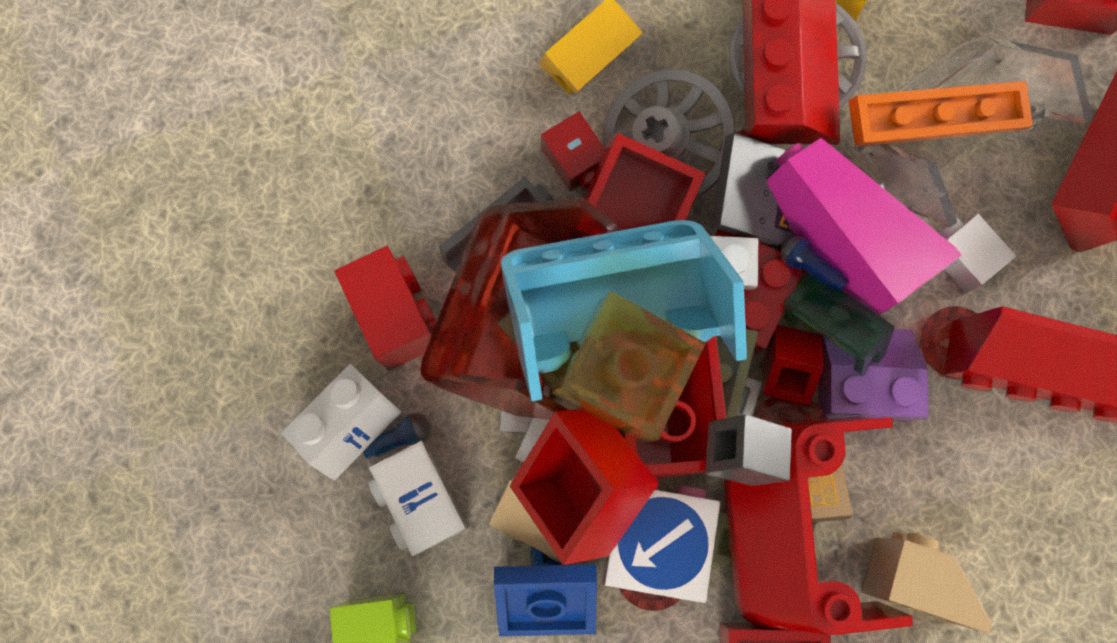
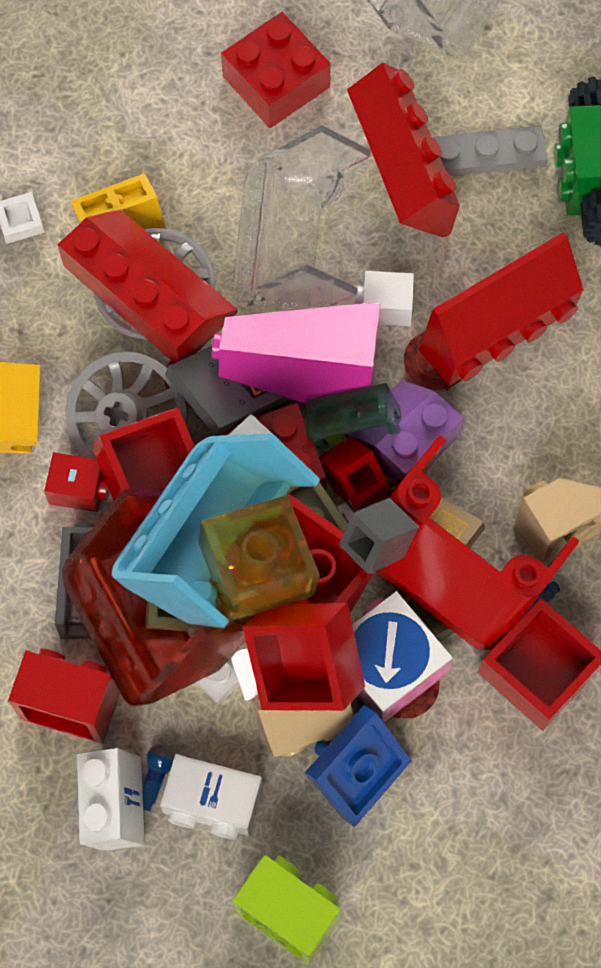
camera: 45 degrees left, 10 degrees down
(800, 254) = (285, 399): clear blue piece -> none
(940, 113) = (278, 234): orange plate -> none

